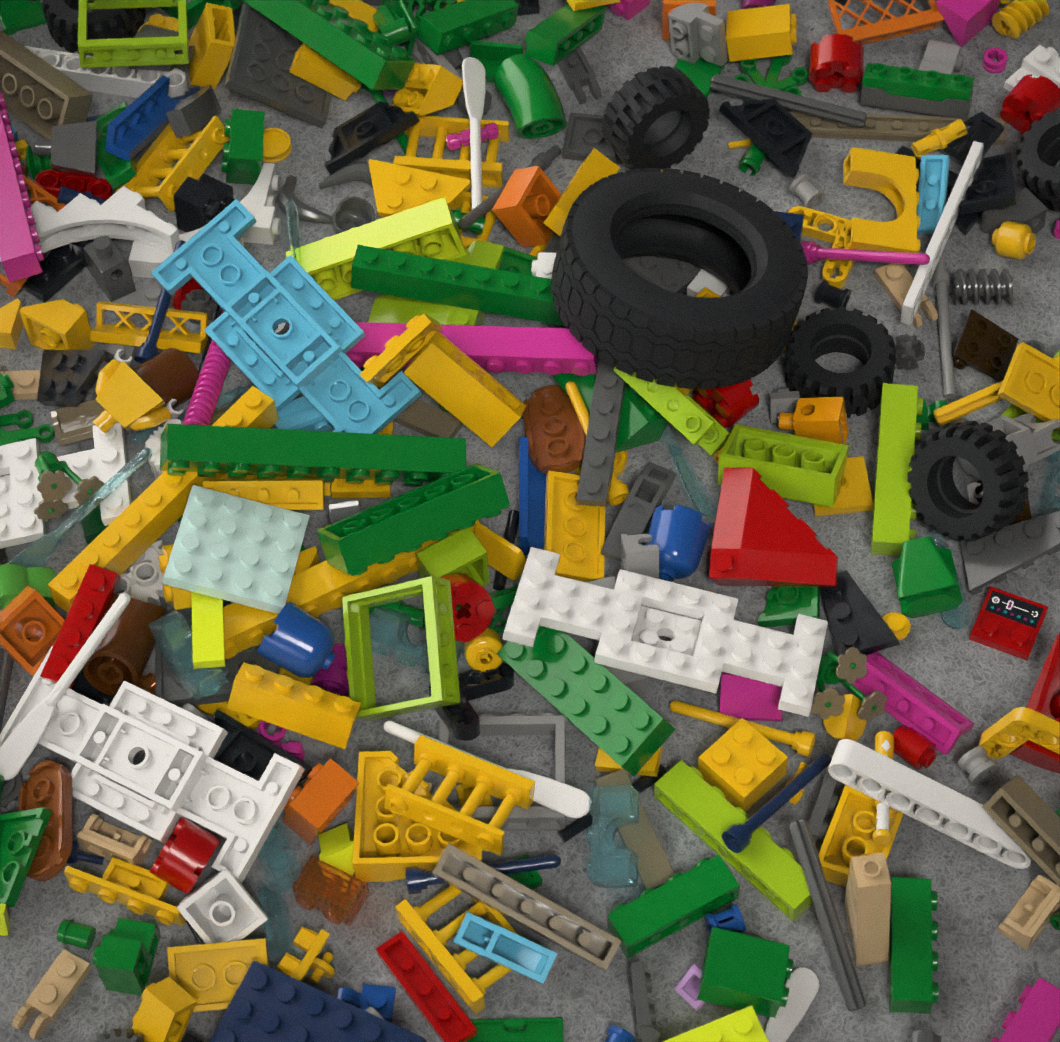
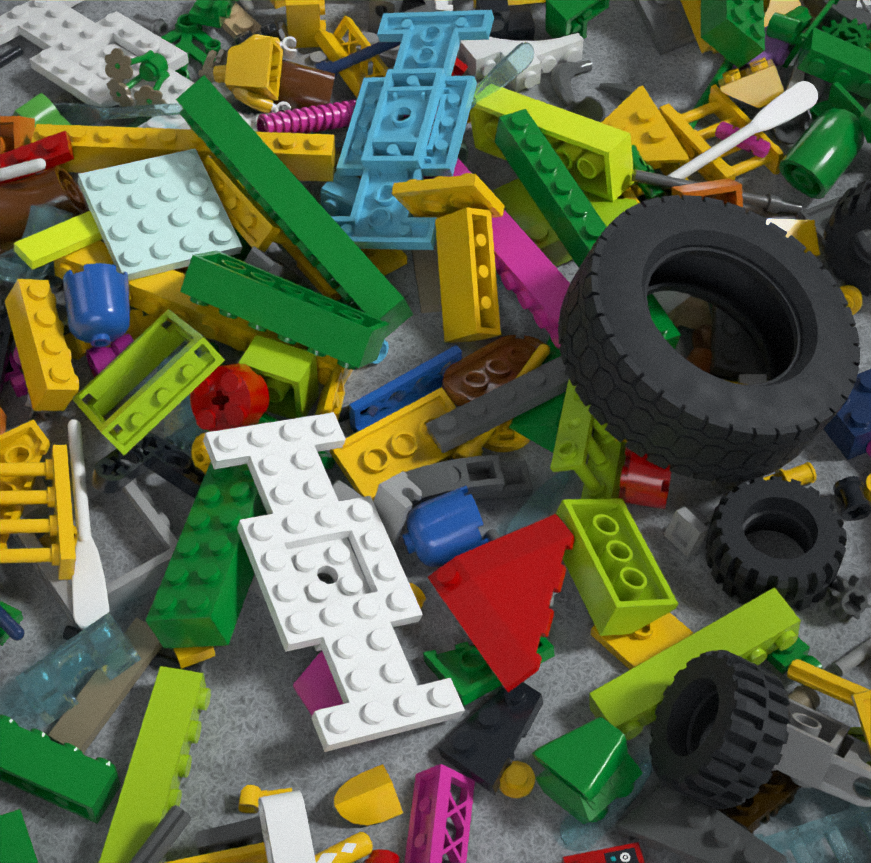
camera: 50 degrees right, 5 degrees down
(276, 145) = (610, 36): yellow piece -> none
(366, 132) = (676, 75): black wing -> none
(728, 920) = (58, 835): blue bush -> none
(738, 836) = (142, 771): dark blue piece -> none
(743, 765) = (241, 733): yellow brick -> none
(801, 742) = (311, 774): yellow piece -> none
(818, 419) = (690, 570): light orange torso -> none
(845, 670) = (409, 753): dark tan plant -> none

